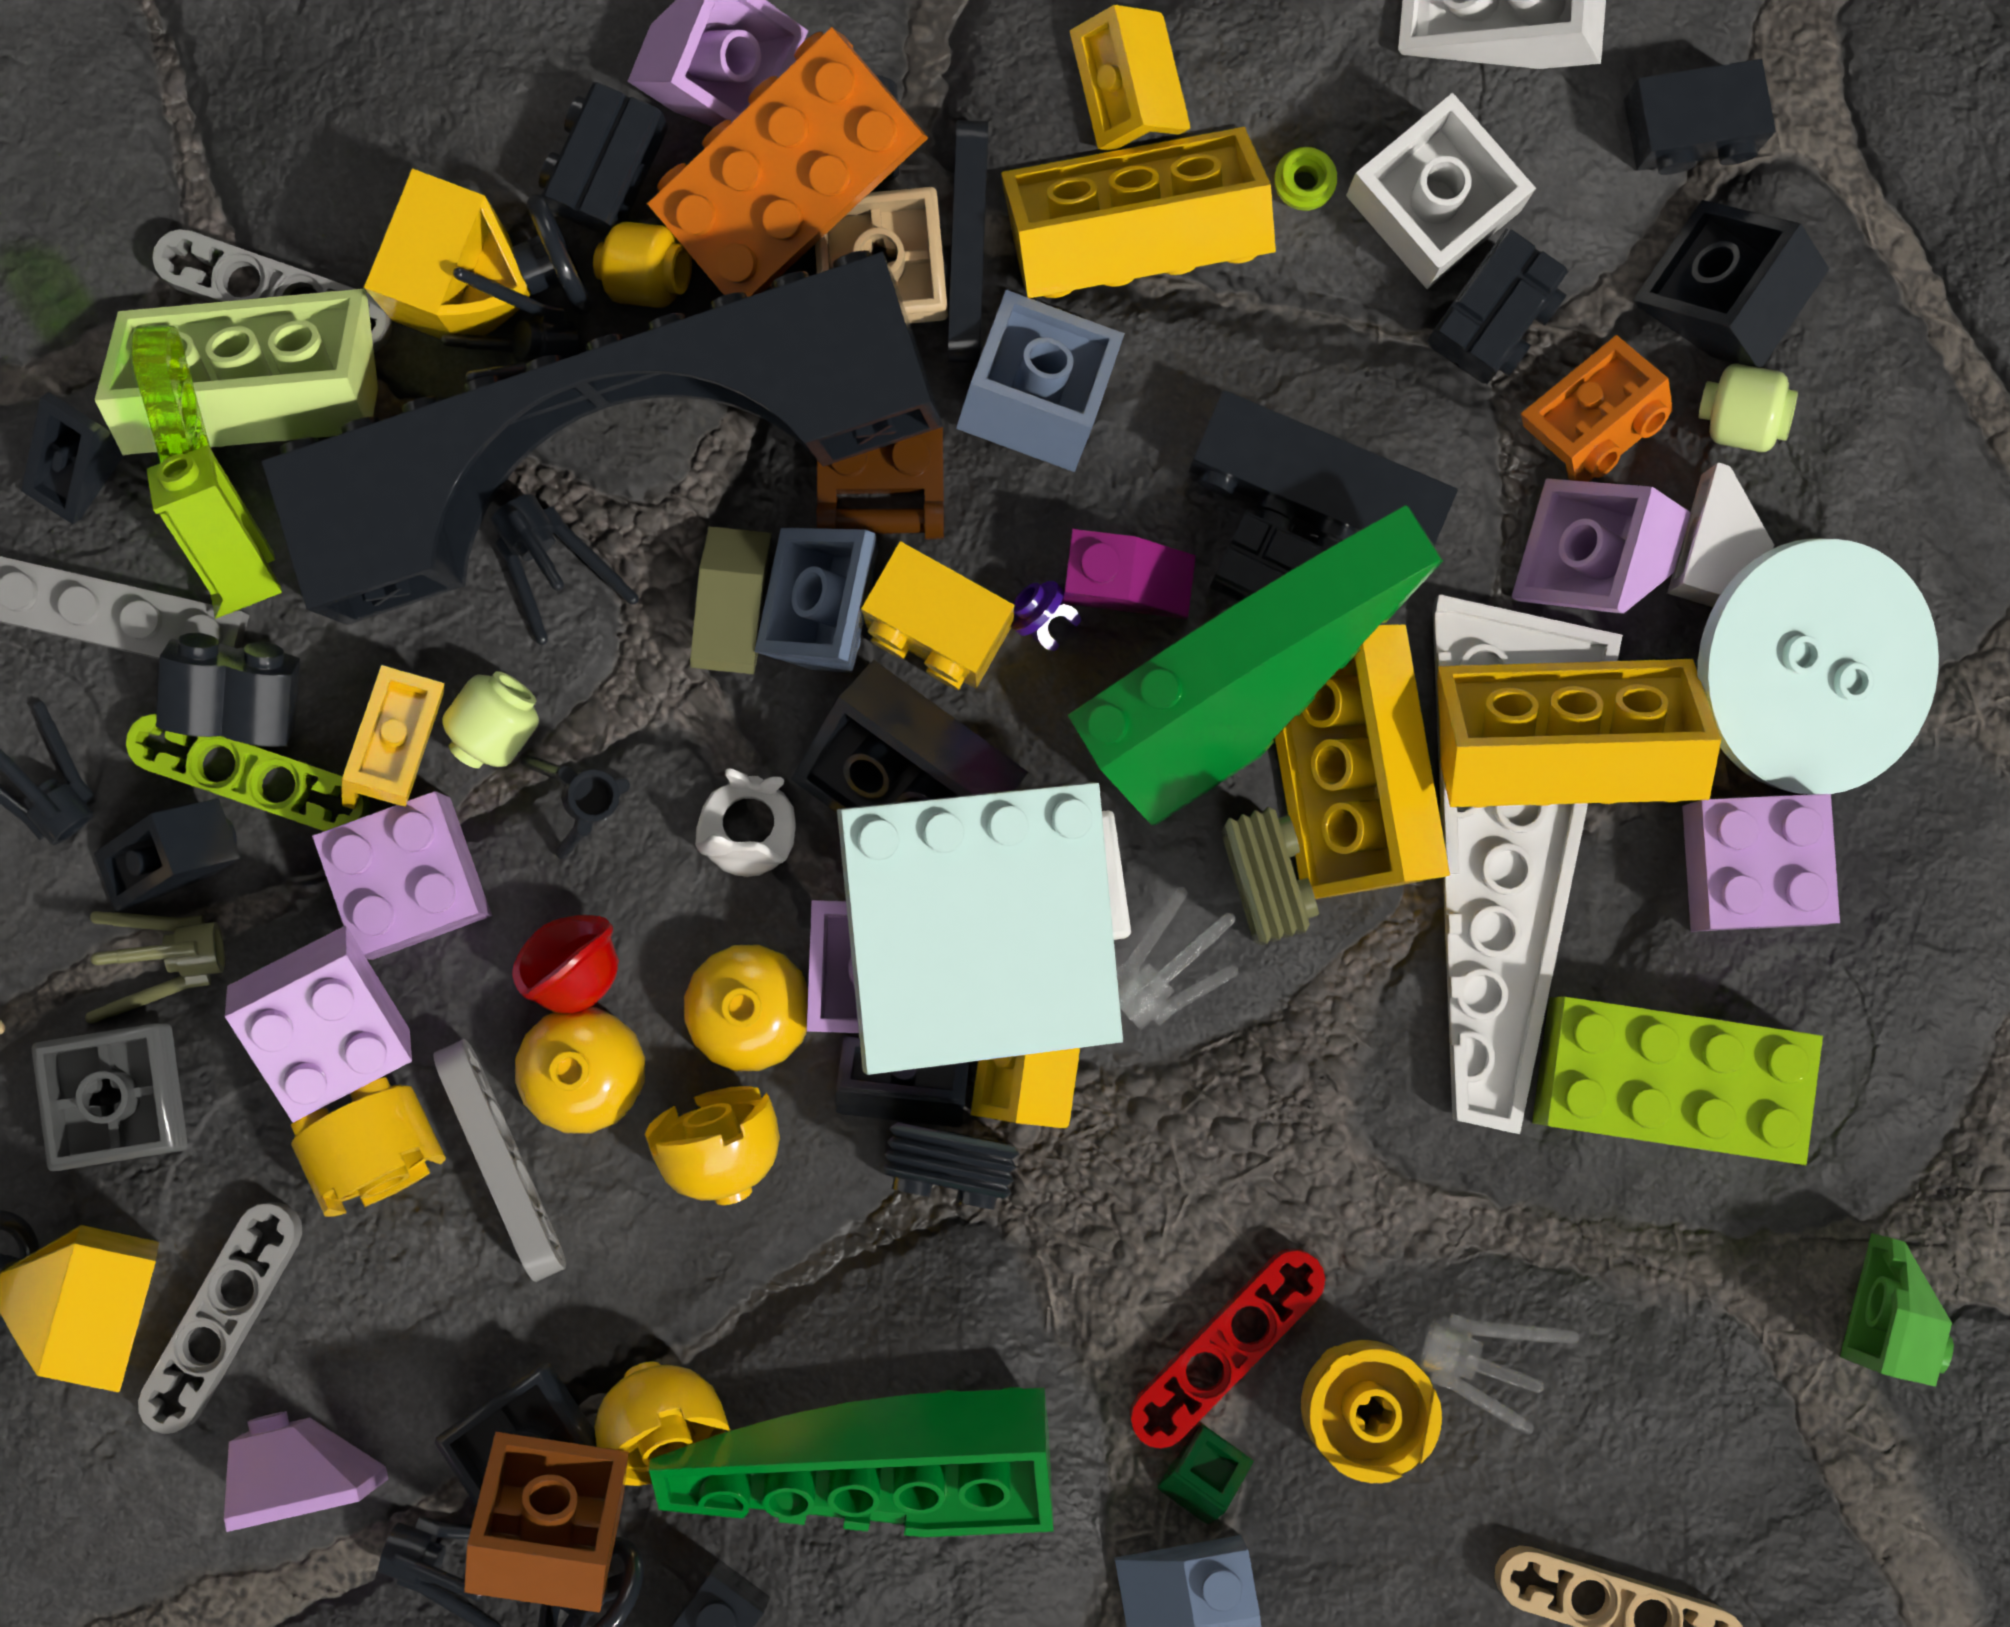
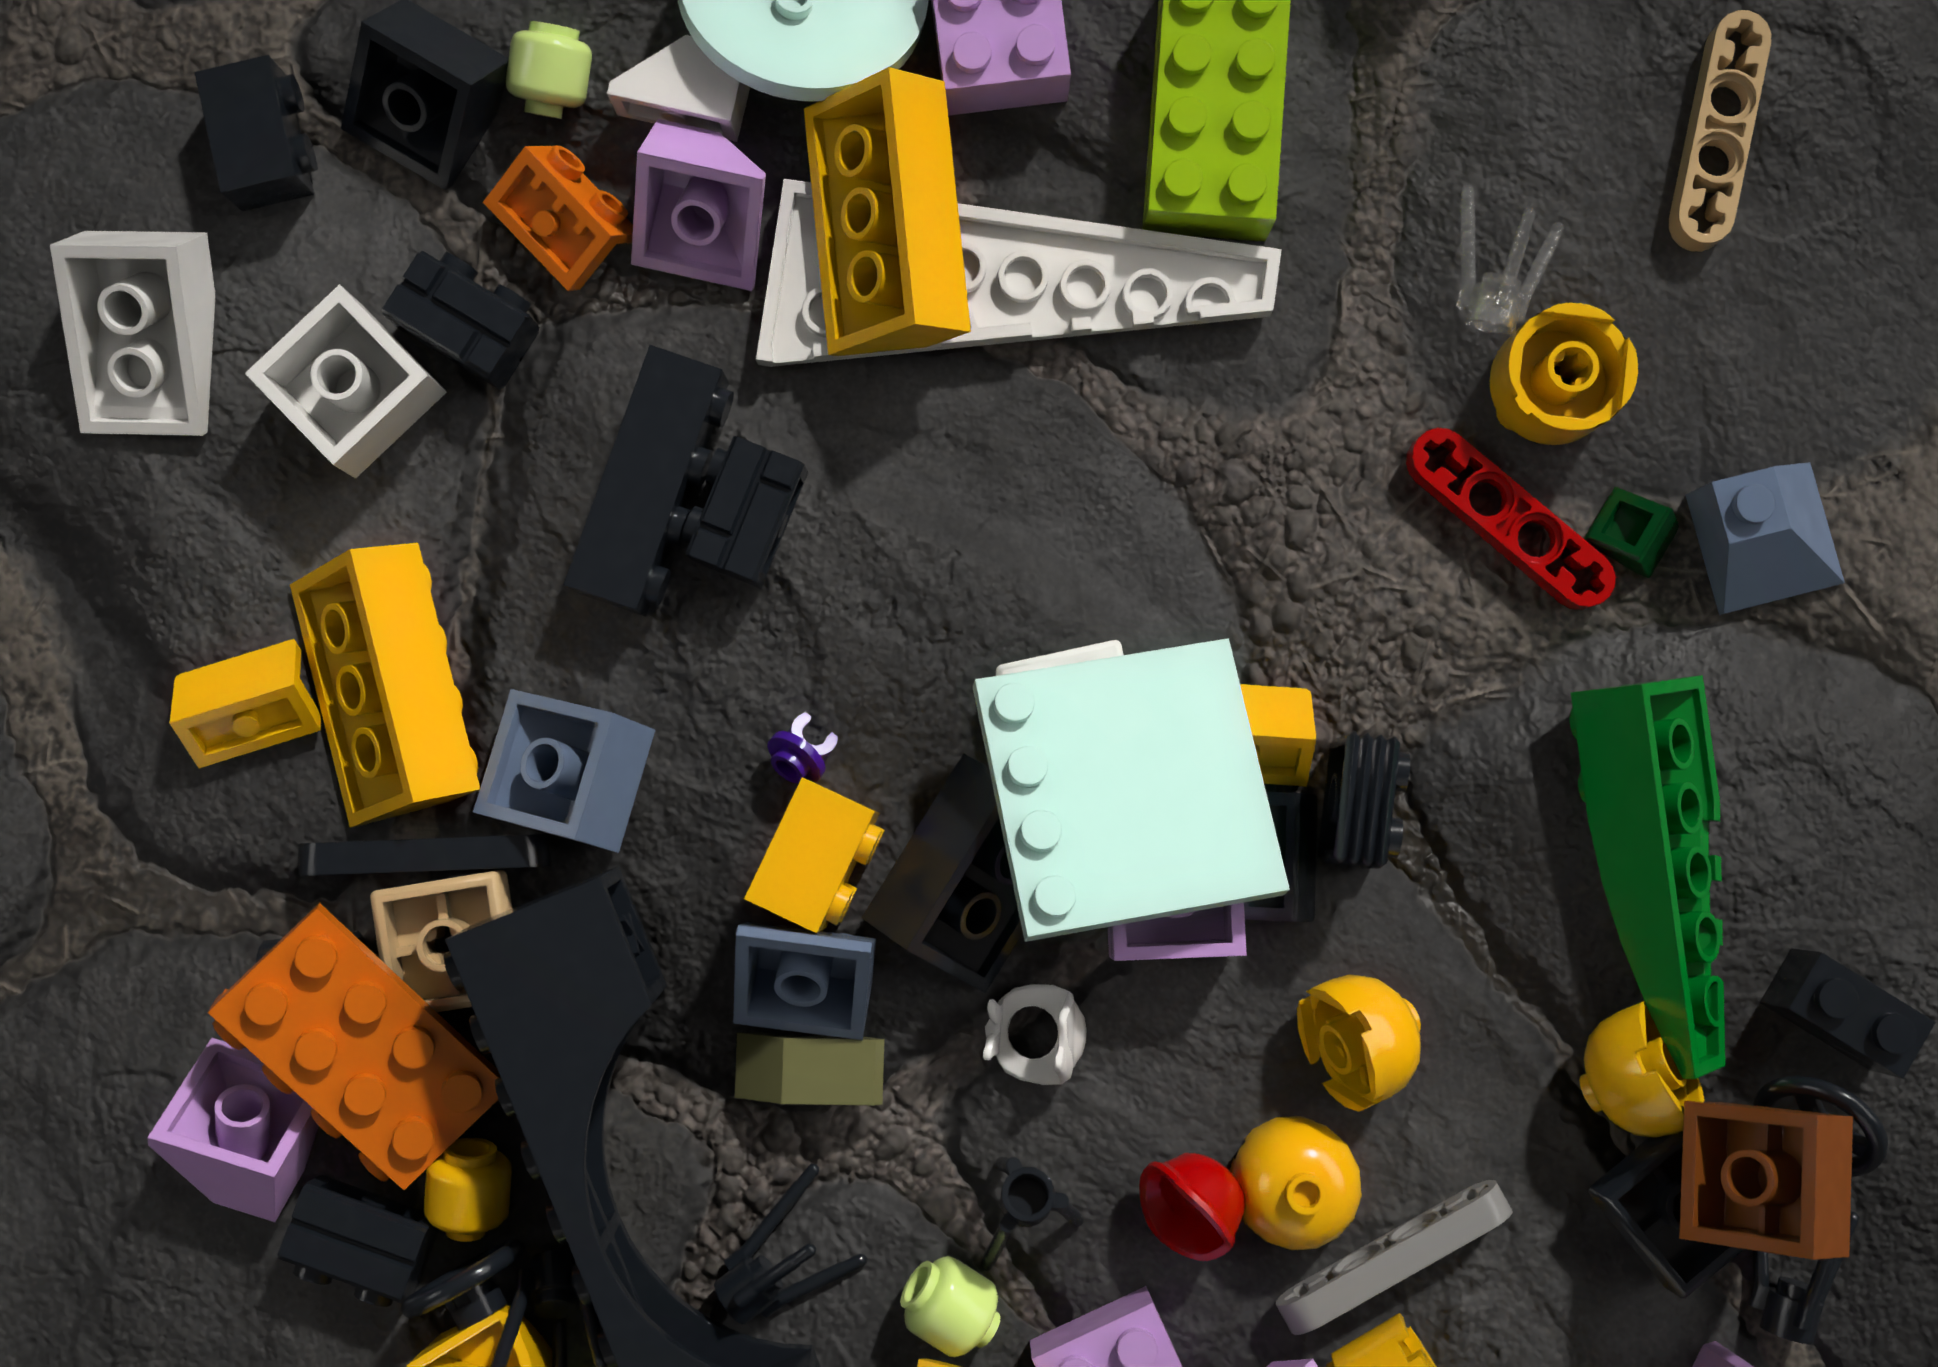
camera: 90 degrees left, 0 degrees up
(747, 1008) = (1219, 1018): yellow cylinder -> none
(901, 467) = (662, 908): reddish brown plate -> none
(1128, 575) = (756, 669): magenta slope -> none
(1145, 991) = (1174, 617): clear plant -> none
(1248, 672) = (849, 536): green wedge -> none
(1262, 868) = (1066, 504): olive brick -> none
(1310, 161) = (324, 510): lime plate -> none
(1363, 776) = (929, 431): yellow slope -> none

